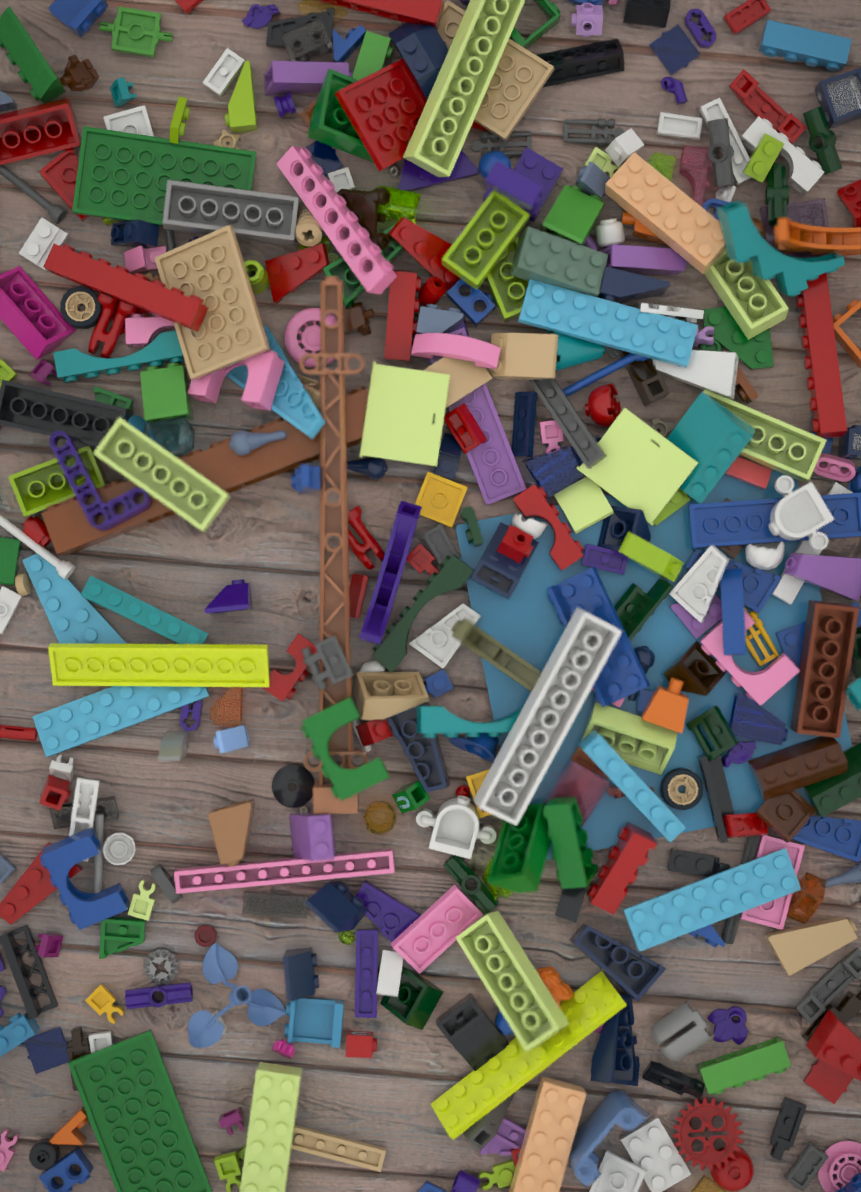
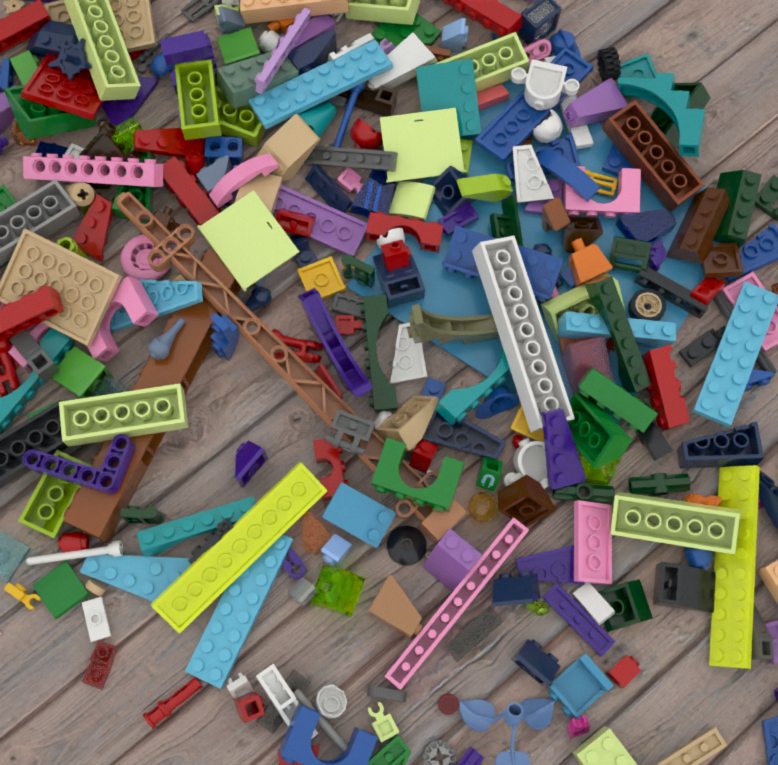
camera: 45 degrees left, 15 degrees down
(105, 560) = (135, 515): none -> dark green plate
(141, 344) = (34, 355): none -> dark grey slope
(142, 639) = (222, 528): none -> black hinge
(204, 770) = (337, 590): none -> clear neon green slope
(276, 729) = (358, 515): none -> dark azure slope
(413, 91) = (71, 58): none -> dark blue piece
(415, 846) = (525, 501): none -> reddish brown slope
(478, 841) = (560, 451): none -> dark purple wing
(538, 936) = (659, 484): none -> dark green piece
(592, 266) = (279, 55): none -> lavender plate
(637, 768) = (609, 305): none -> dark green arch
(683, 640) = (554, 215): none -> dark orange slope
(775, 385) = (455, 36): none -> light blue slope

